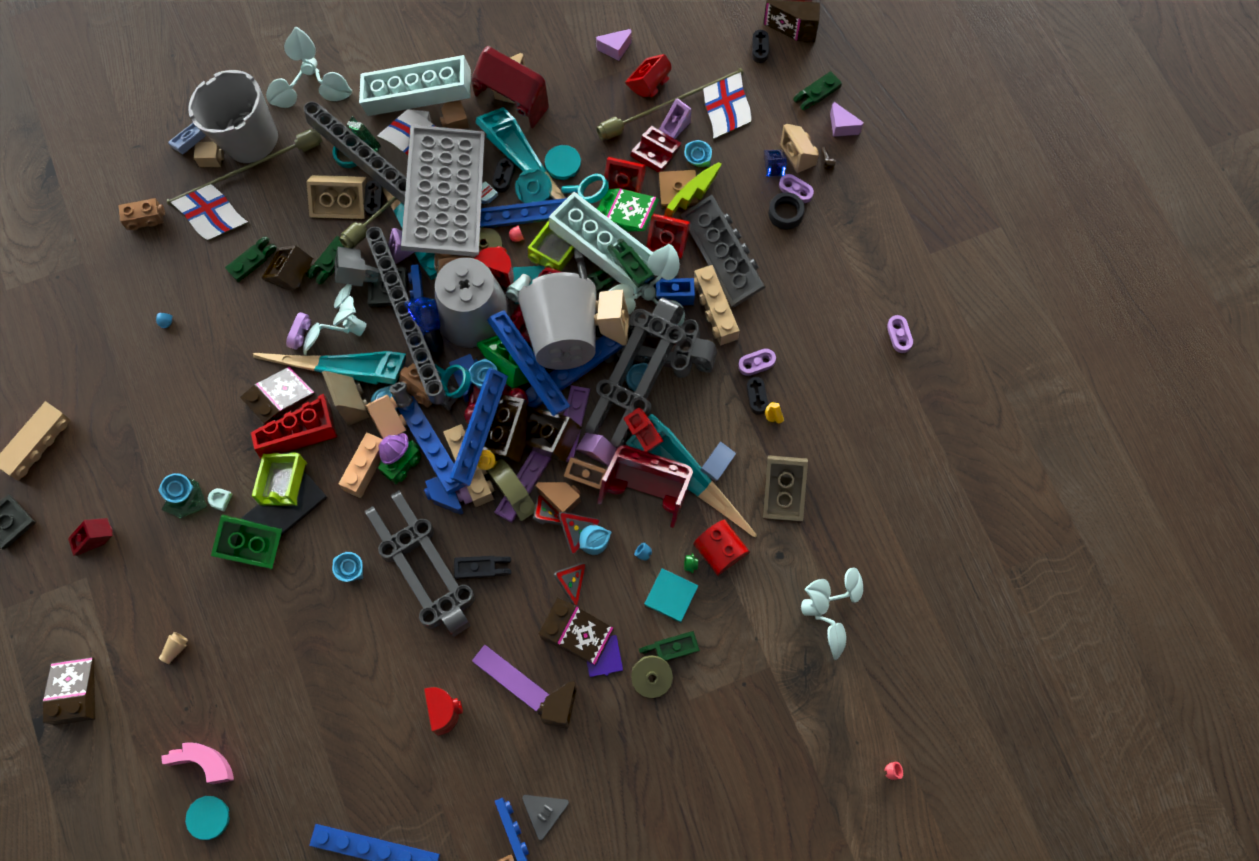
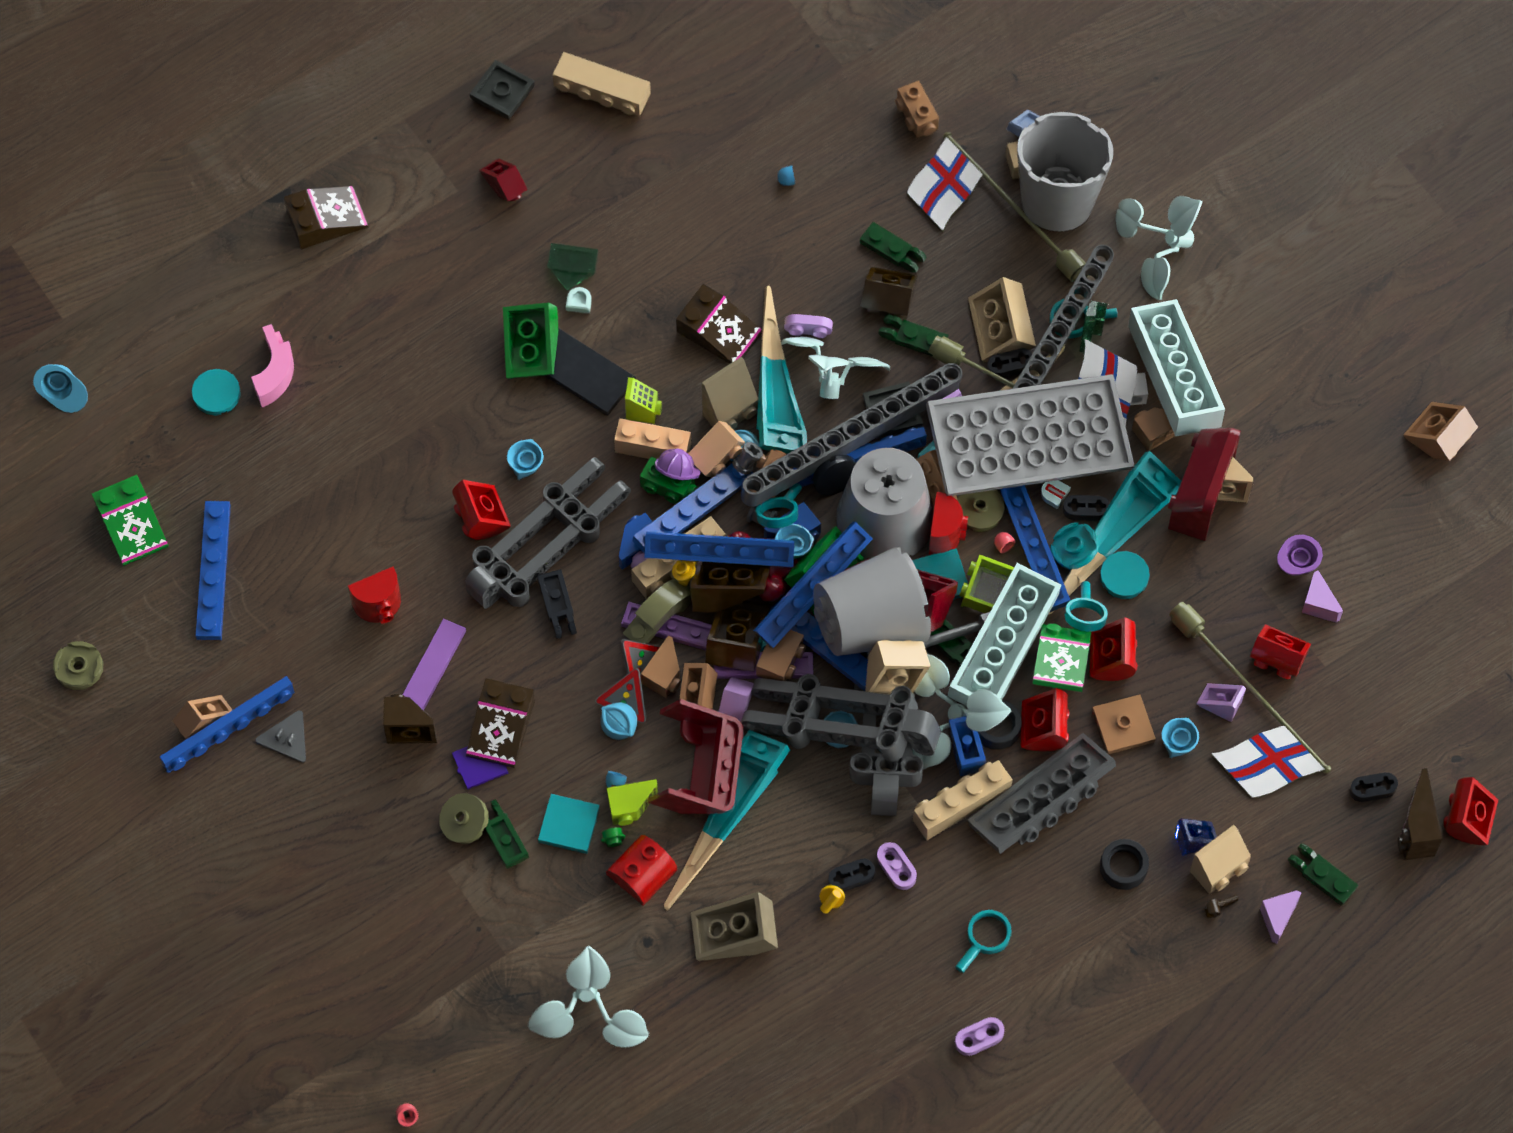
camera: 75 degrees right, 5 degrees down
(173, 646) = (395, 302): tan cone -> none
(175, 488) = (576, 249): medium azure hat -> none
(279, 479) = (613, 354): lime window -> none
(296, 429) = (676, 354): red wedge -> none
(327, 466) = (641, 402): none -> lime slope
(351, 268) = (901, 358): dark grey hinge -> none
(384, 612) = (480, 509): none -> red brick
(424, 312) = (850, 451): clear blue slope -> none
(514, 289) = (926, 559): light aqua cone -> none
(571, 581) = (560, 705): piece -> none
(580, 46) = (1299, 555): none -> medium lavender piece
(580, 408) = (779, 661): none -> medium nougat brick
(631, 263) = (973, 672): dark green hinge -> none
(643, 429) = (769, 735): red slope -> none
(655, 149) = (1175, 685): dark red slope -> none
(665, 544) = (630, 801): none -> lime slope
(695, 188) = (1126, 743): lime slope -> none
(718, 461) = (750, 842): sand blue slope -> none
(797, 187) = (1160, 872): lavender plate -> none
(830, 323) = (976, 948): none -> teal piece

